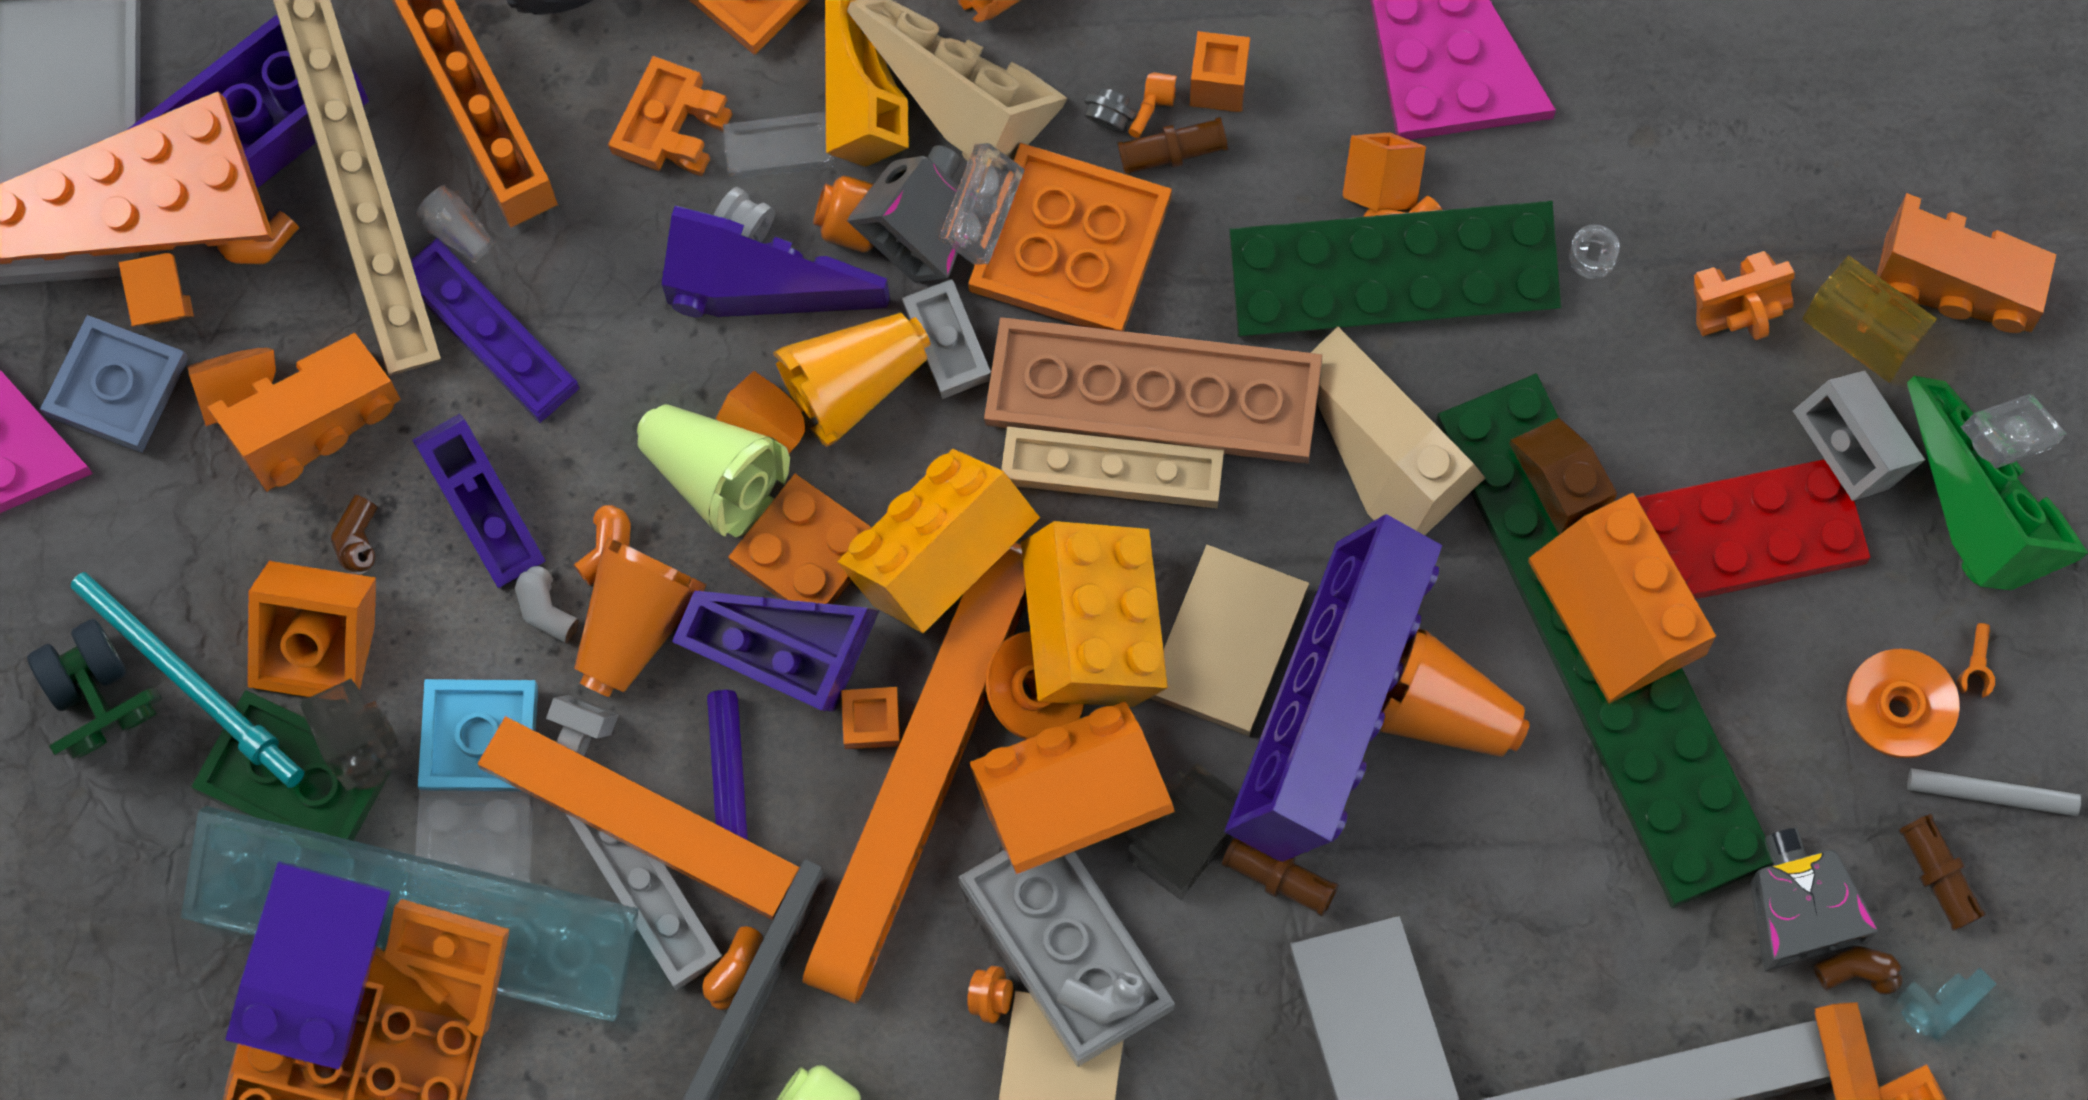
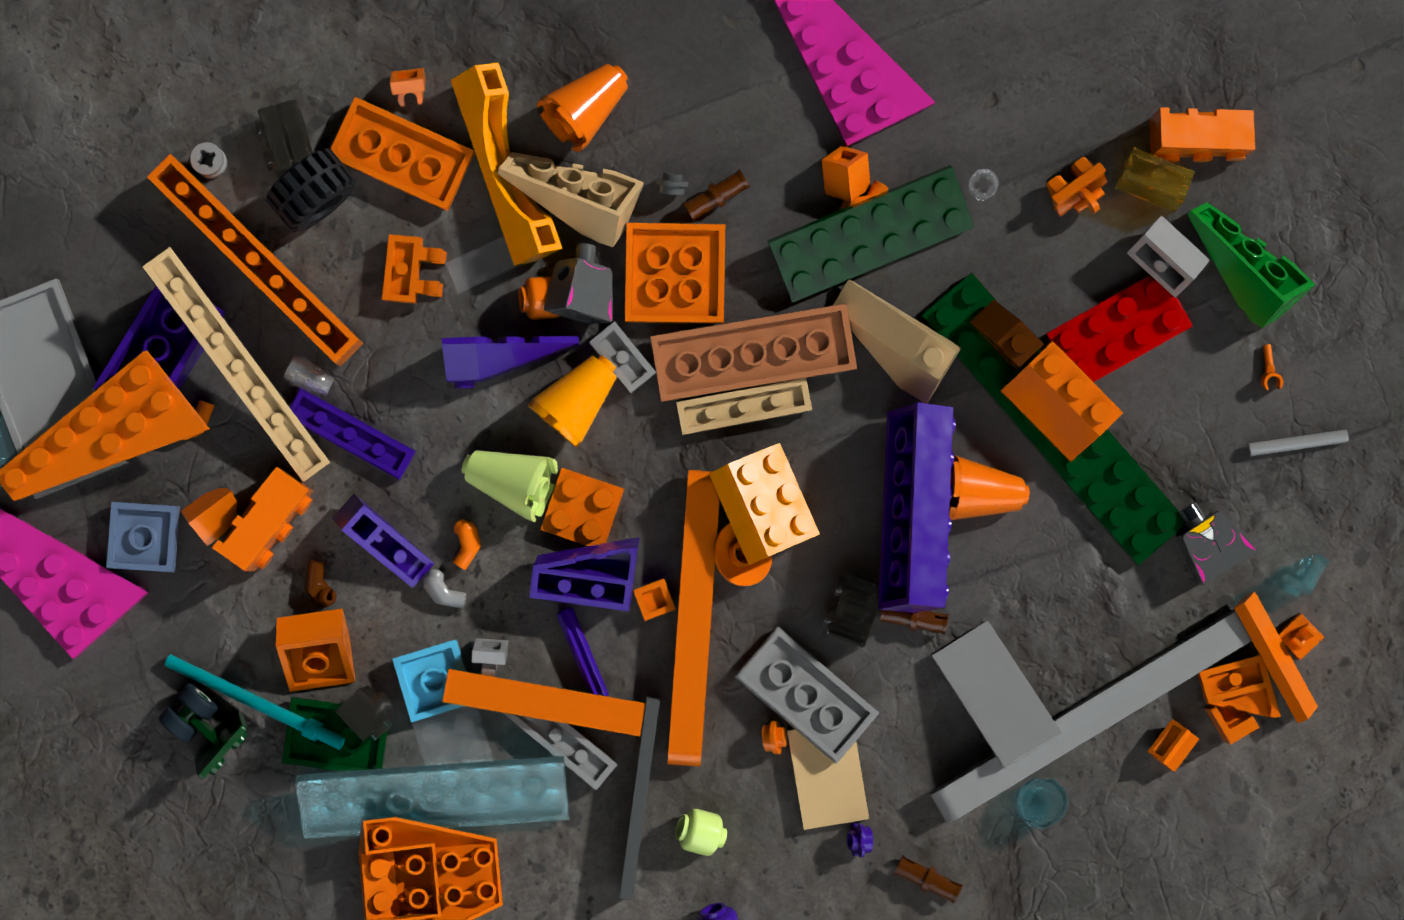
camera: 20 degrees left, 15 degrees up
(154, 290) = (146, 477): orange panel -> none
(308, 965) = (394, 854): dark purple slope -> none
(449, 958) = (466, 817): orange wing -> none
(629, 616) = (498, 583): orange cone -> none
(727, 975) = (625, 771): orange arm -> none
(755, 217) = (477, 321): light grey wheel -> none
(765, 410) = (532, 437): orange brick -> none
(938, 539) = (661, 487): light orange brick -> none
(981, 203) = (618, 272): clear plate -> none
(1071, 786) = (784, 609): orange slope -> none
(1105, 1004) = (843, 727): light grey arm -> none
(1158, 90) = (697, 162): orange hand -> none
(1219, 71) = (730, 140): orange panel -> none
(1229, 639) = (843, 486): tan tile -> none
(1864, 963) = (1251, 565): reddish brown arm -> none
(1916, 682) = (1249, 401): orange dish -> none
(1942, 872) = (1281, 500): reddish brown pin -> none
(2013, 431) = (1256, 226): clear plate -> none

